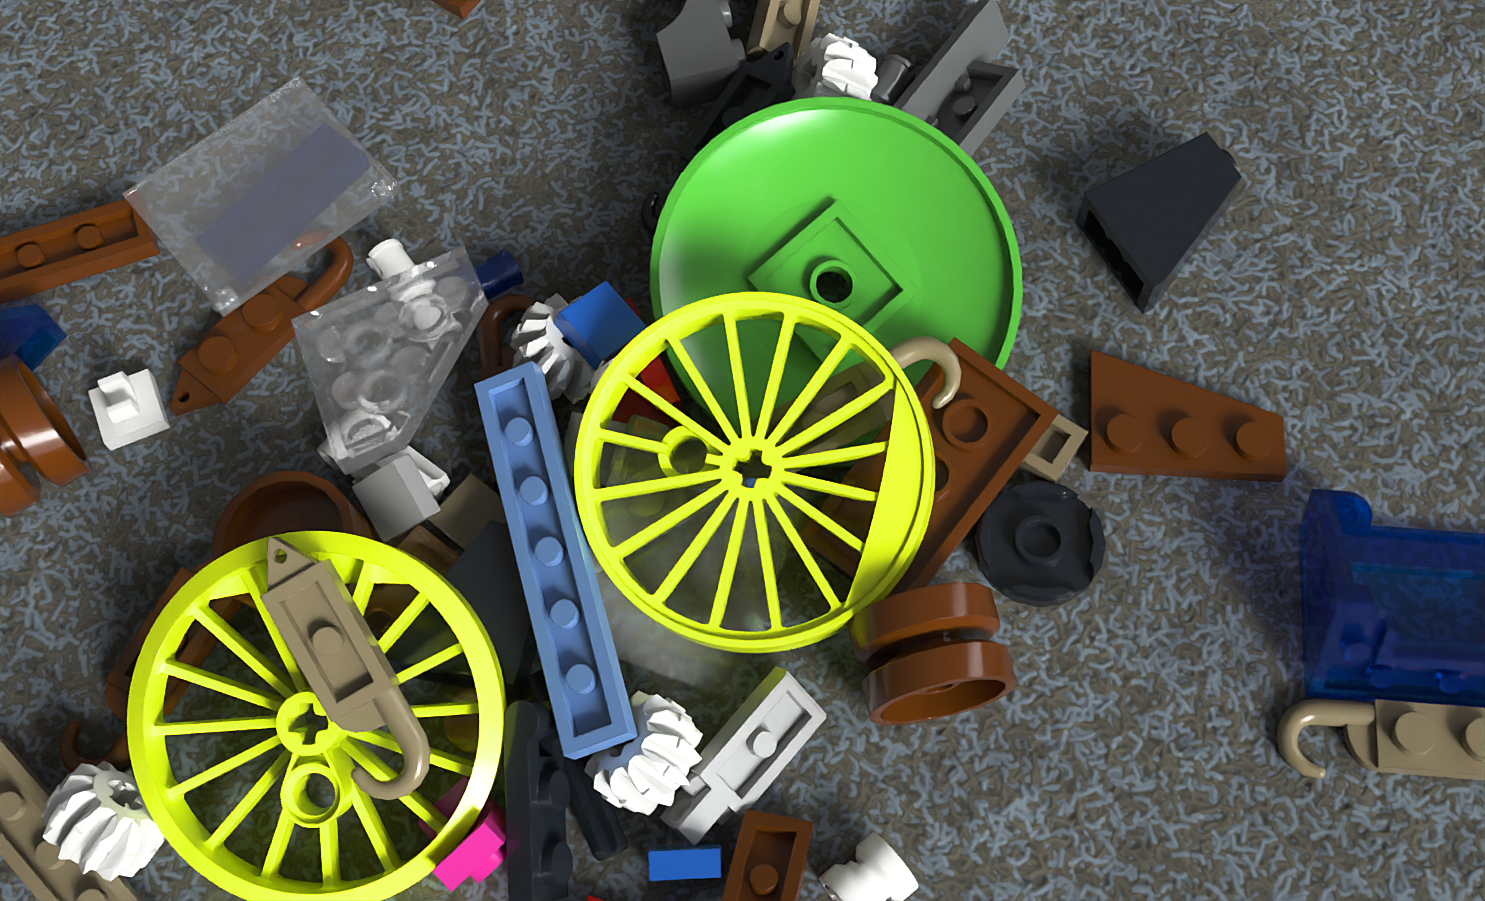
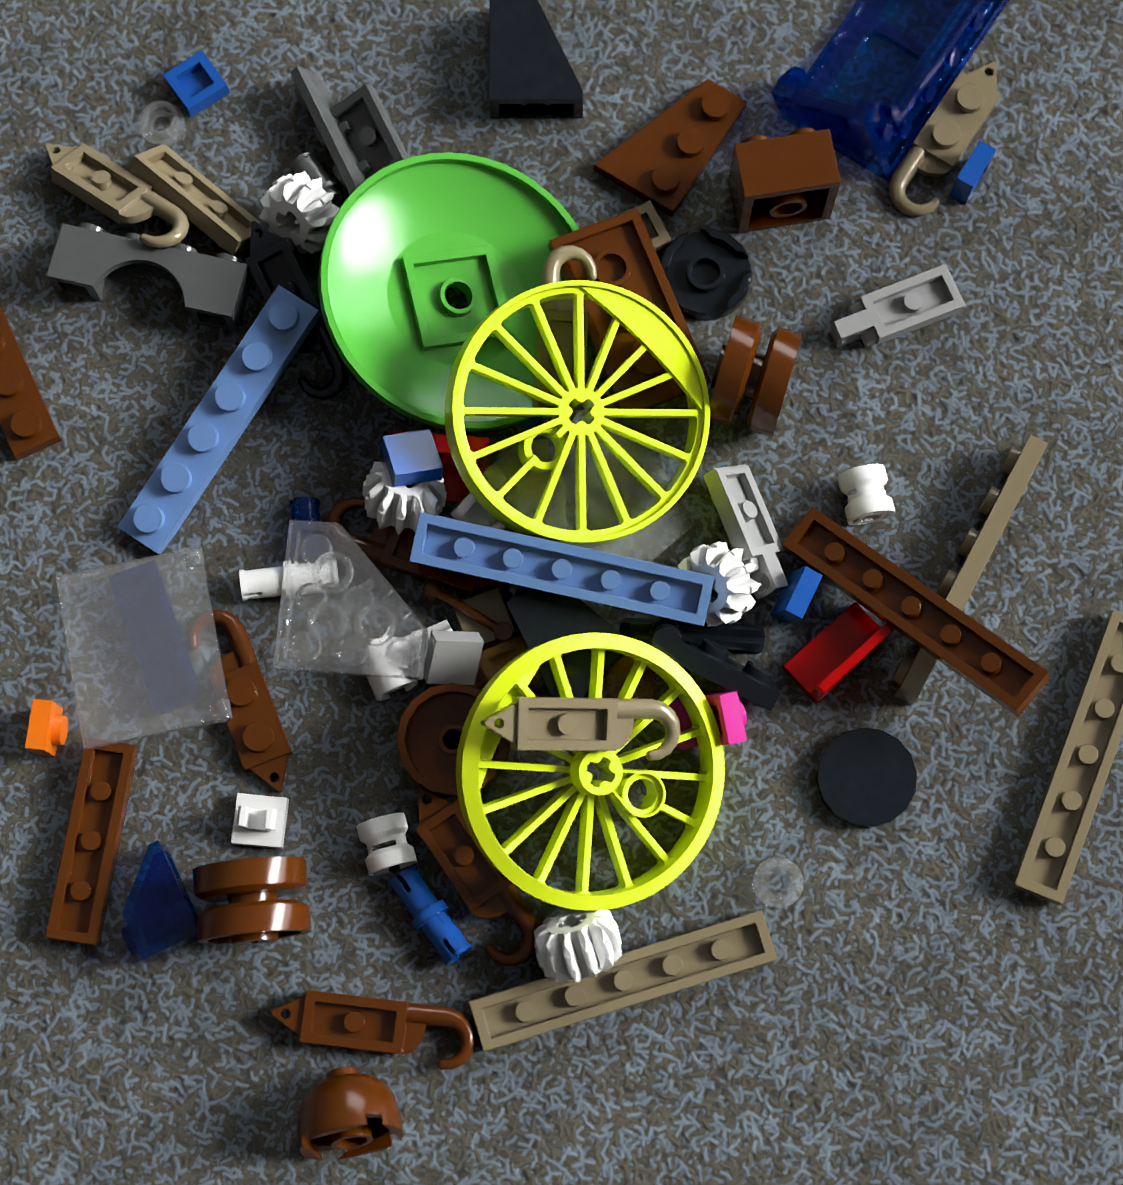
camera: 65 degrees left, 10 degrees up
(88, 640) = (430, 915): none -> blue pin
(133, 152) = (46, 728): none -> orange plate
(156, 533) = (384, 833): none -> white wheel
(475, 443) = (502, 631): none -> reddish brown hinge
(552, 134) = (219, 420): none -> medium blue plate
(1145, 799) = (900, 308): none -> light grey hinge
(1207, 556) = (783, 179): none -> reddish brown brick
(1387, 794) = (972, 172): none -> blue tile

